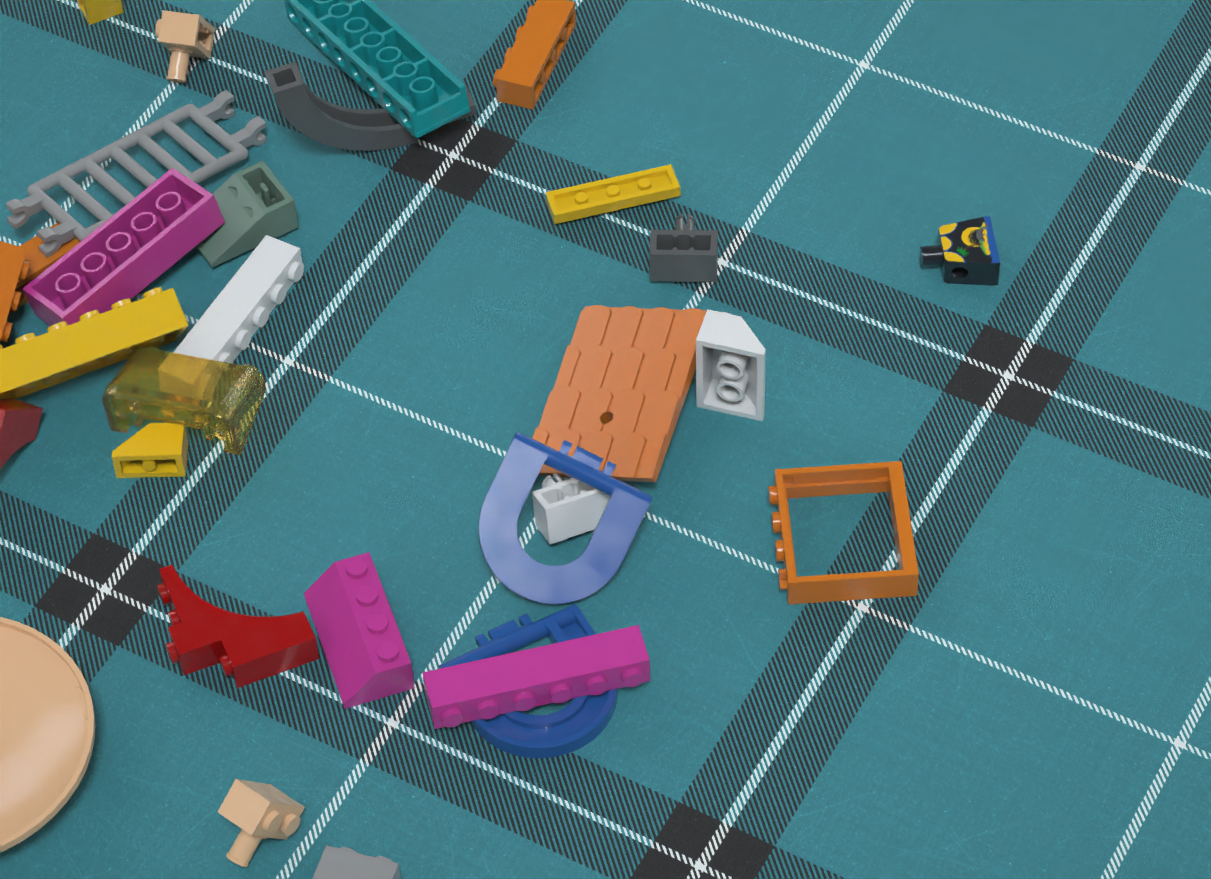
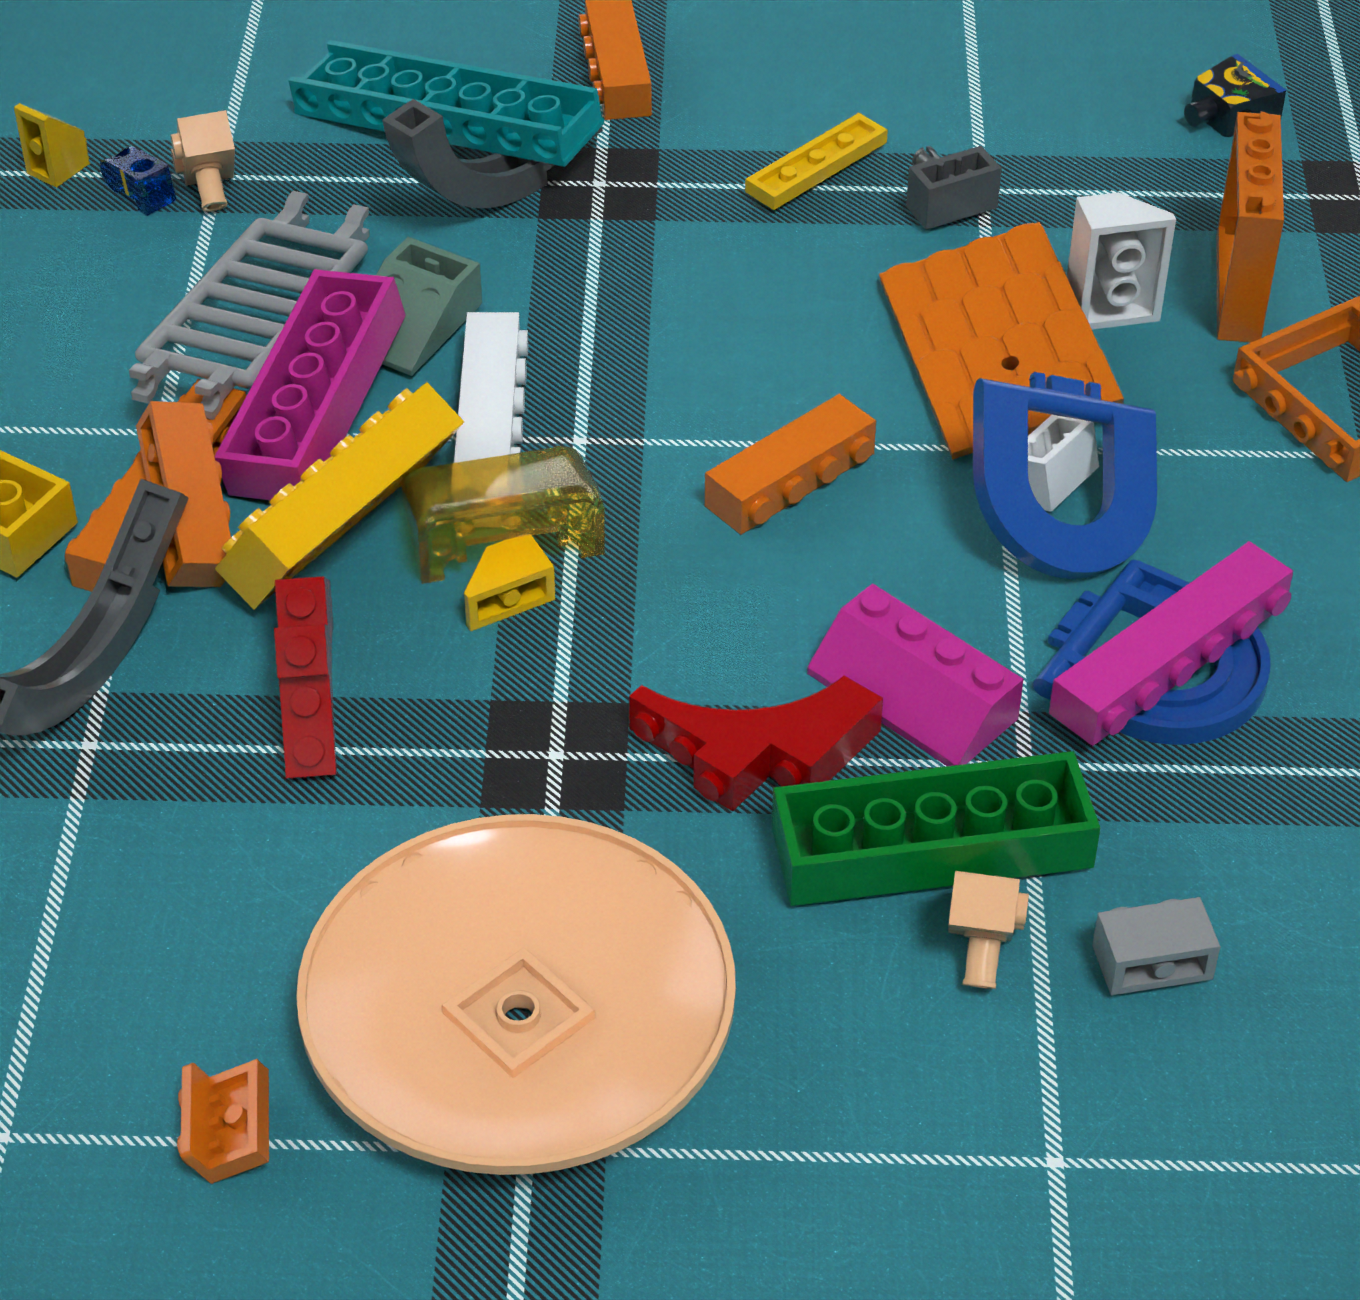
camera: 30 degrees left, 5 degrees down
(139, 41) = (140, 178): none -> clear blue leg
(281, 742) = (928, 823): none -> green brick
(402, 436) = (789, 463): none -> orange brick
(823, 423) = (1249, 226): none -> orange window

